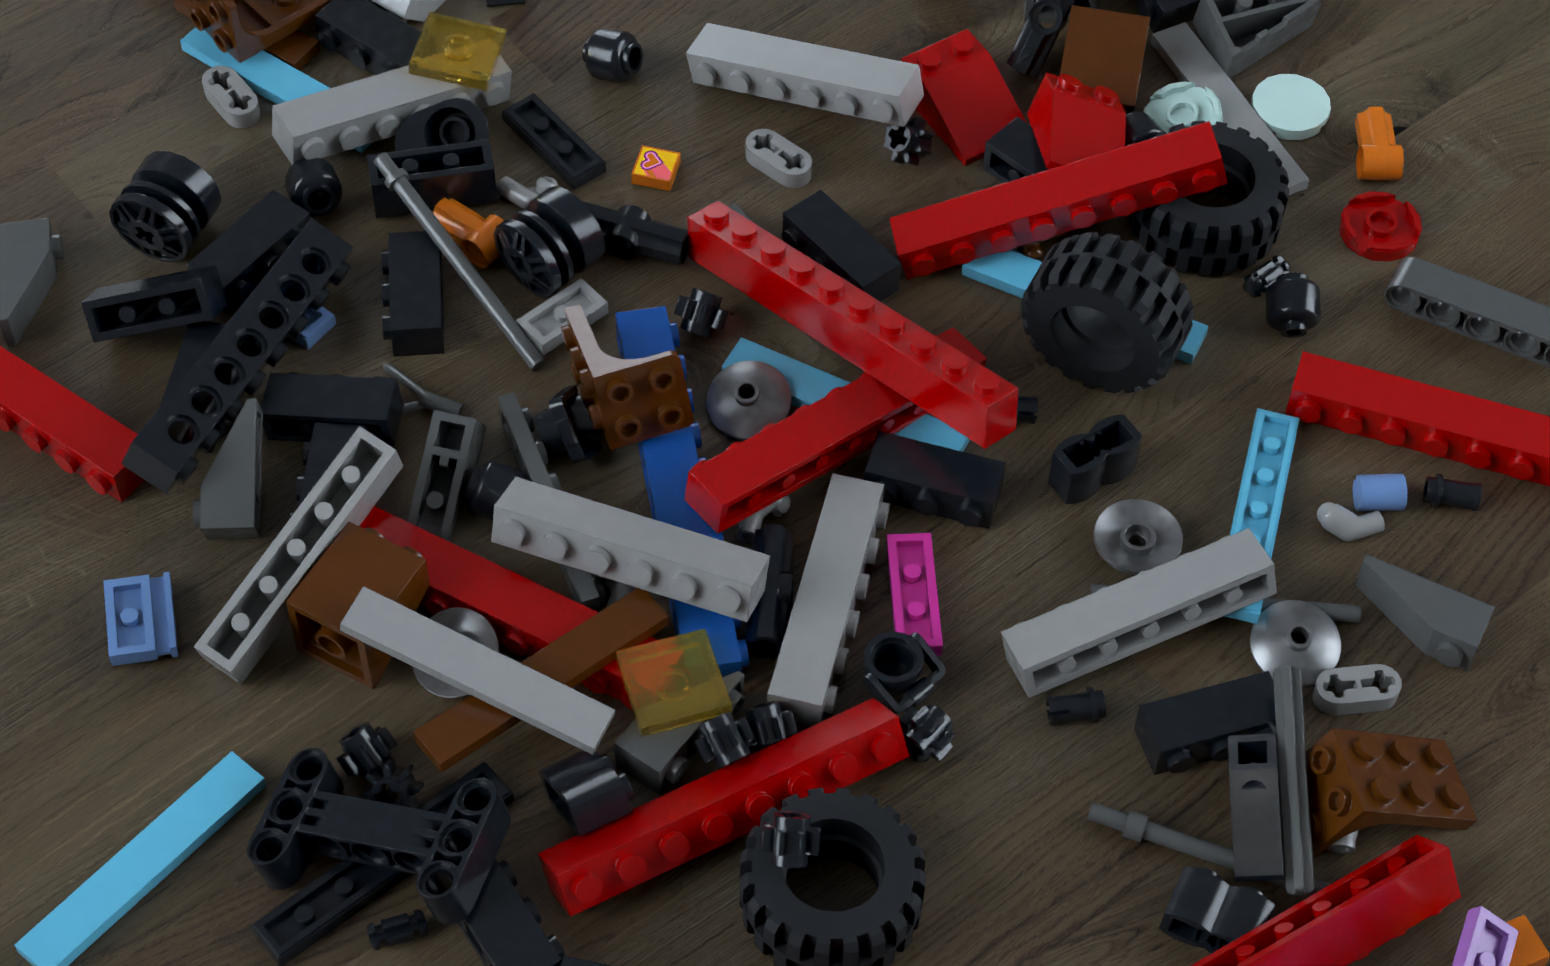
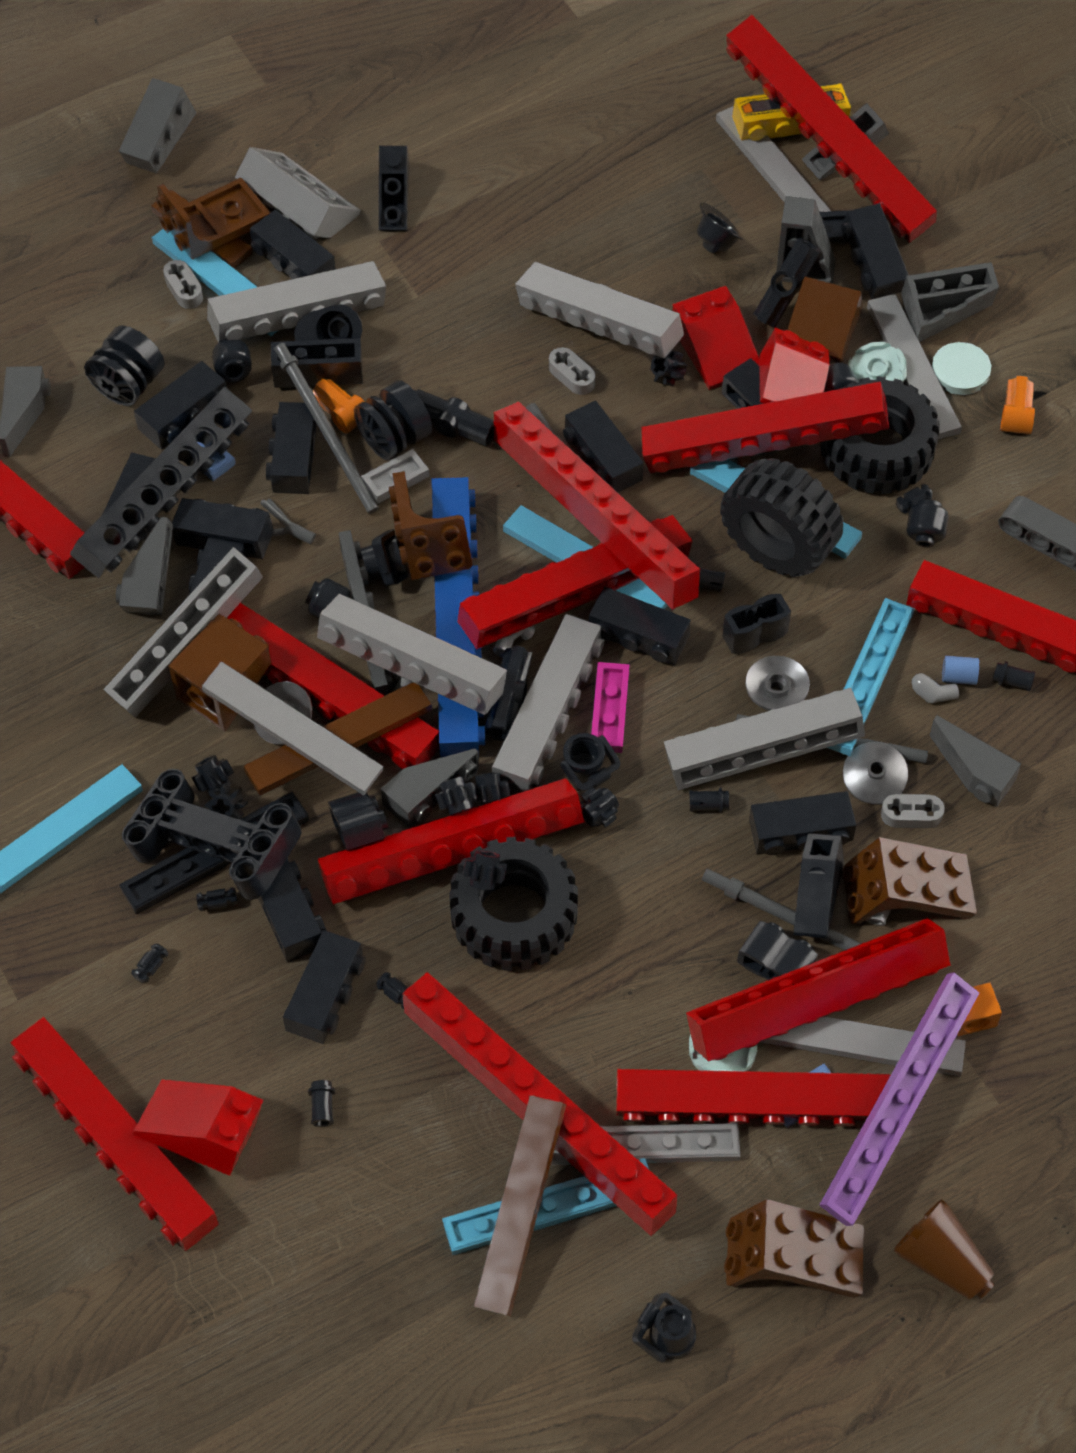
camera: 10 degrees right, 5 degrees up
(140, 619) = (71, 664): medium blue plate -> none
(154, 303) = (108, 438): black brick -> none
(445, 472) = (296, 576): dark grey slope -> none
(457, 51) = (348, 267): clear yellow tile -> none
(519, 193) = (380, 380): light grey arm -> none
(553, 141) = (410, 341): black tile -> none
(612, 55) = (463, 279): black head -> none
(656, 168) = (481, 369): tile -> none
(673, 682) = (427, 751): clear yellow tile -> none
(701, 312) = (494, 483): black gear -> none
(746, 417) = (529, 559): flat silver dish -> none
(1293, 781) = (847, 870): dark grey axle -> none
(1380, 226) = (1008, 468): red tile -> none

